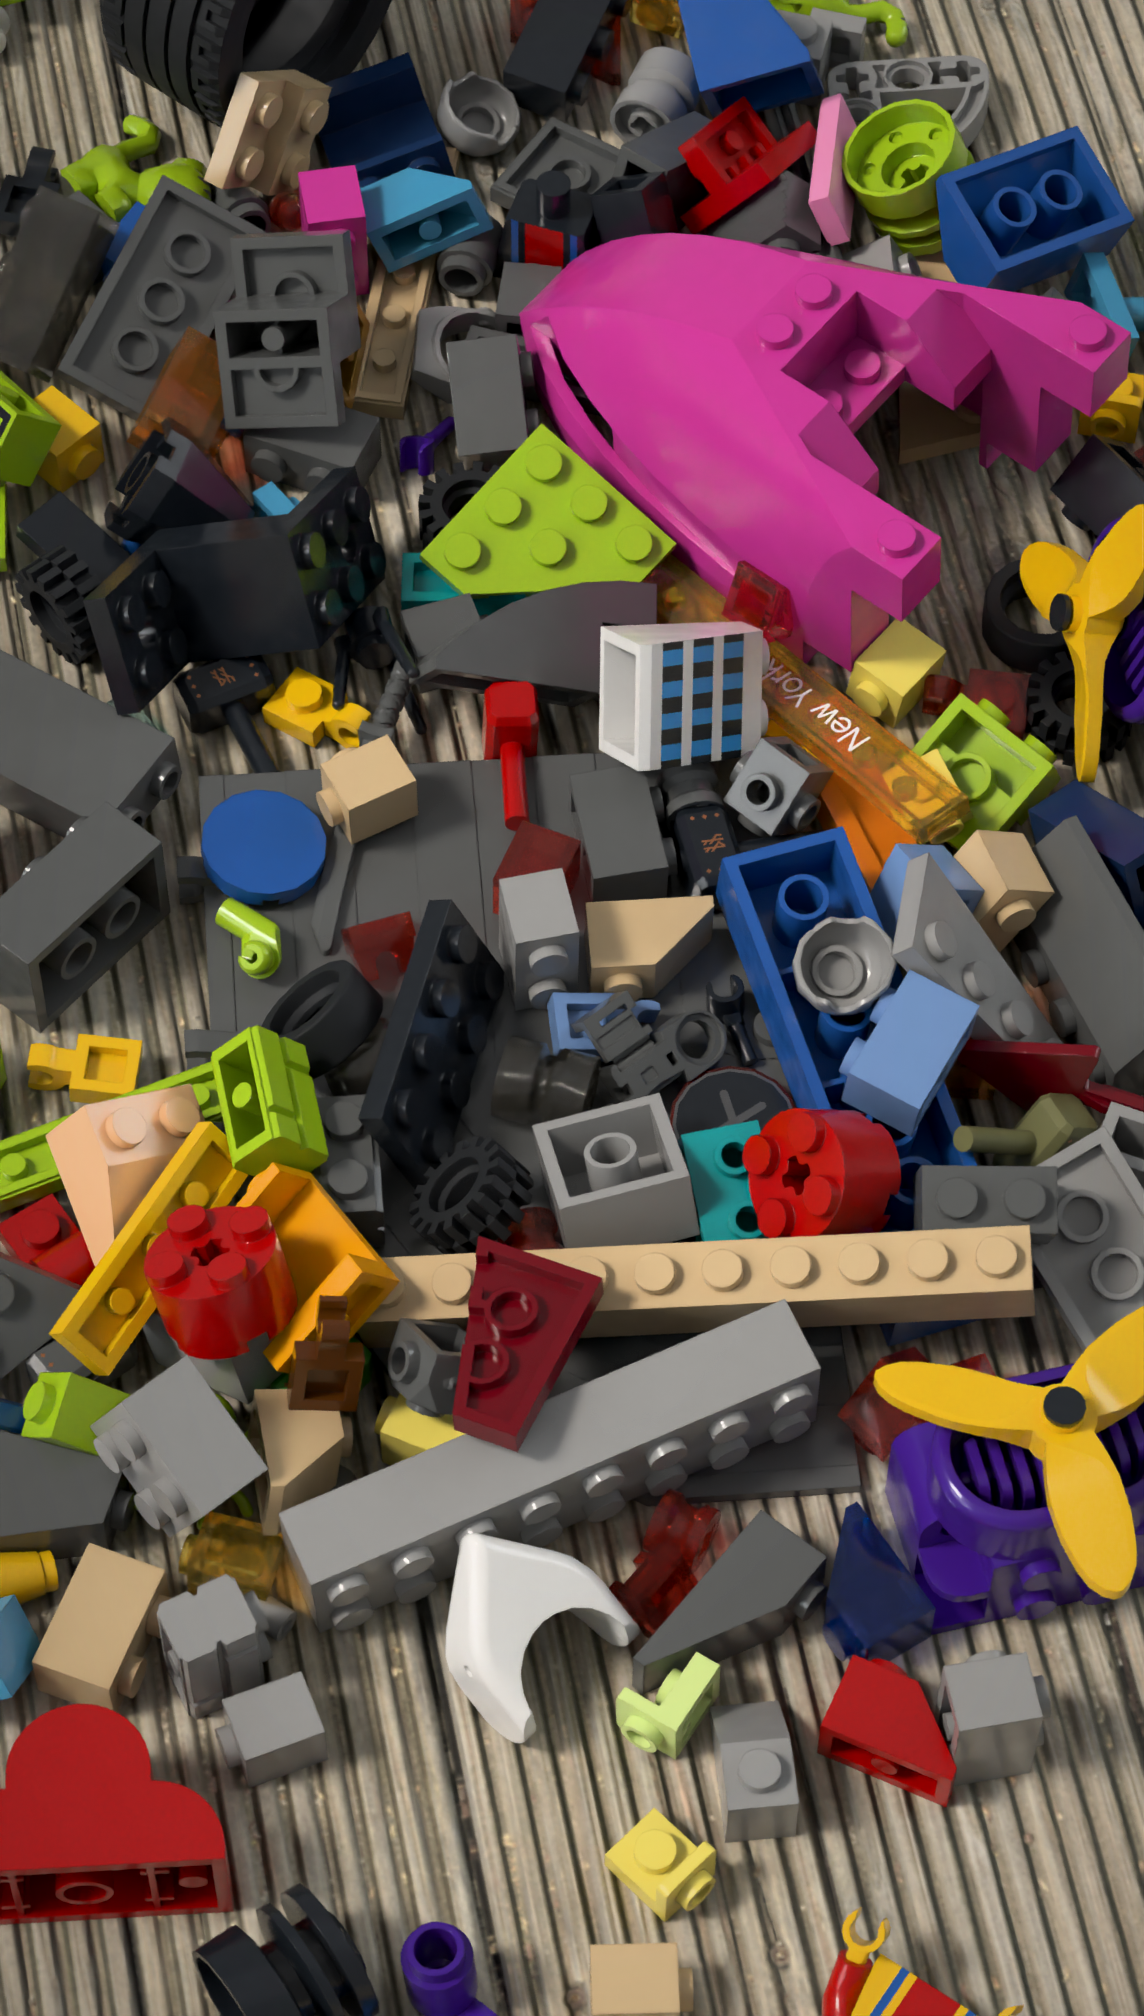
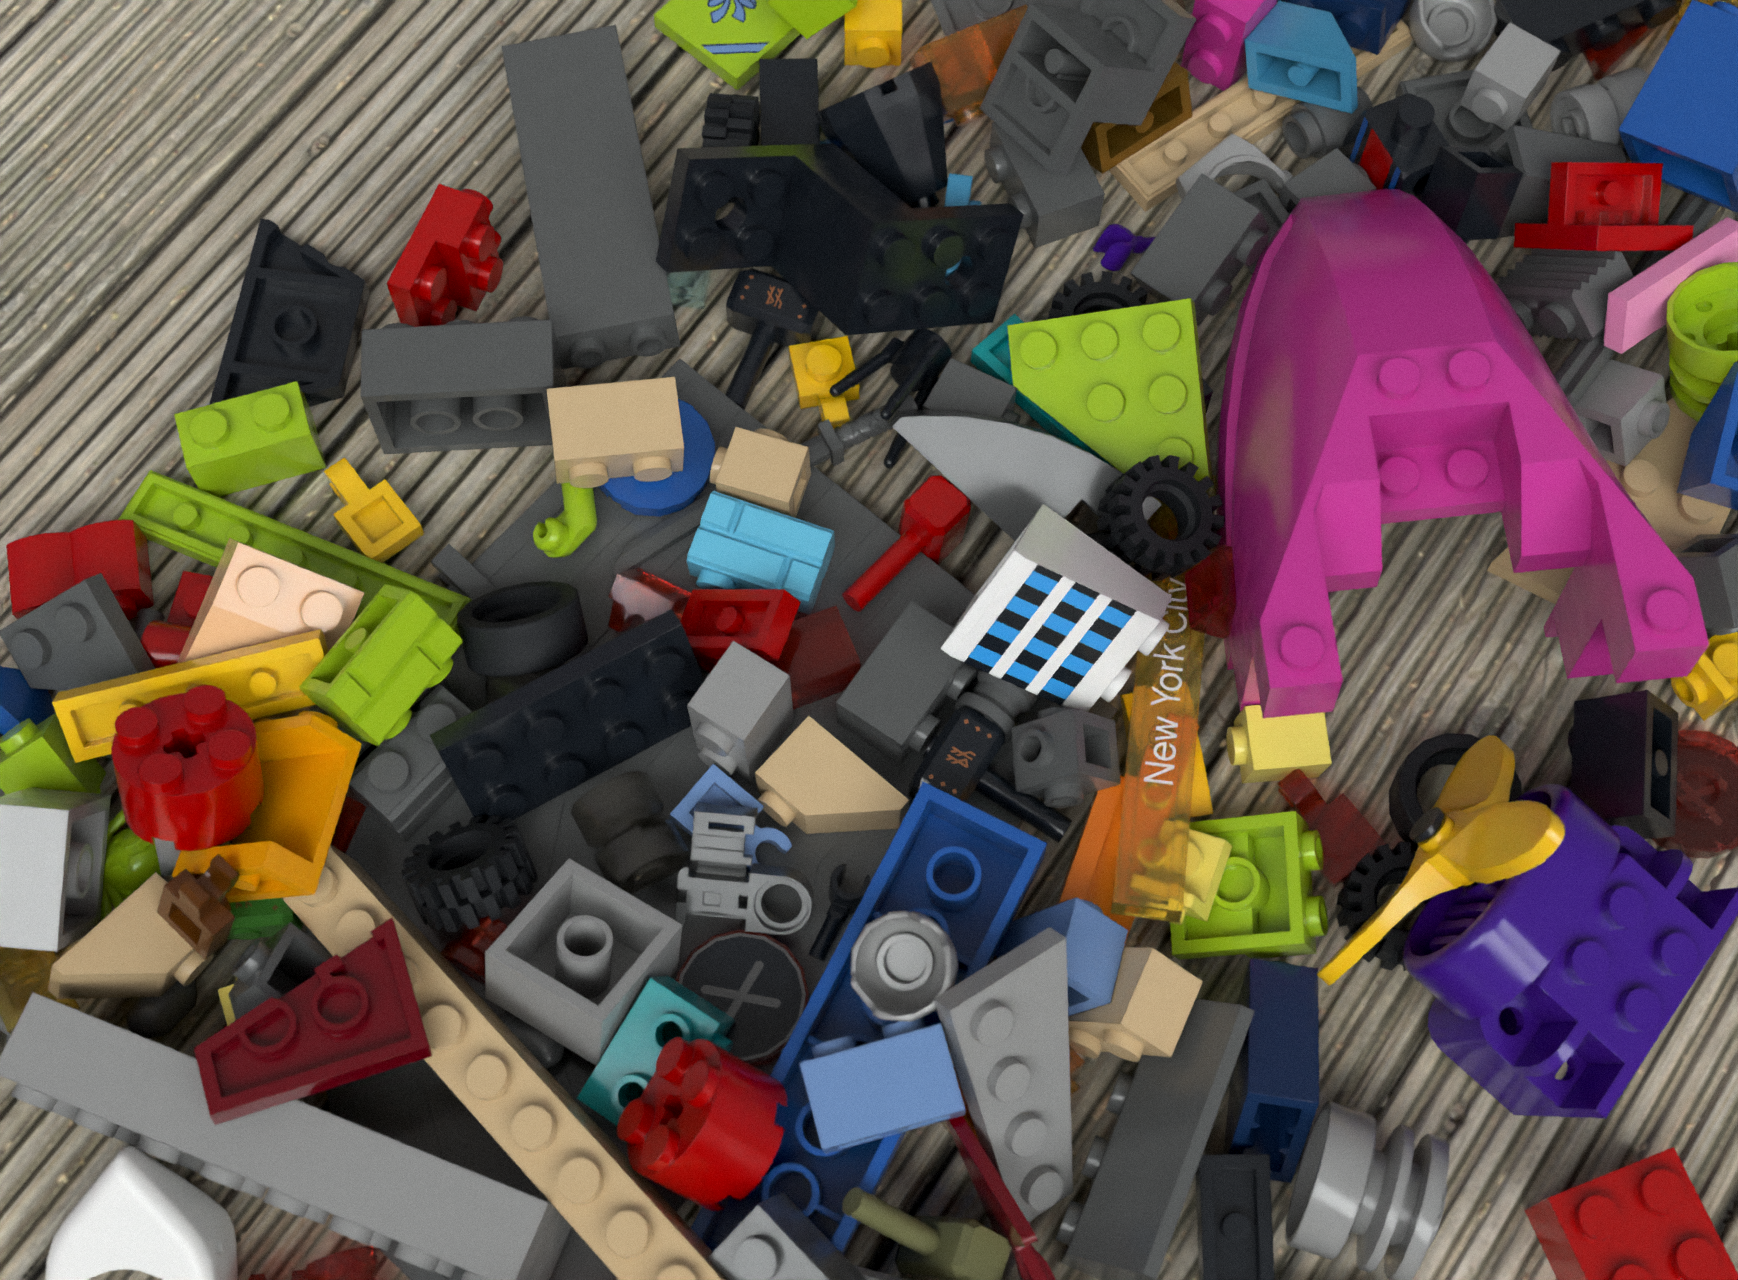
camera: 45 degrees right, 10 degrees up
(235, 840) = (616, 431): none -> tan brick
(424, 841) = (759, 549): none -> medium azure brick
(473, 879) = (750, 617): none -> red plate
(572, 121) = (1509, 77): none -> light grey brick
(682, 563) = (1186, 500): none -> black tyre

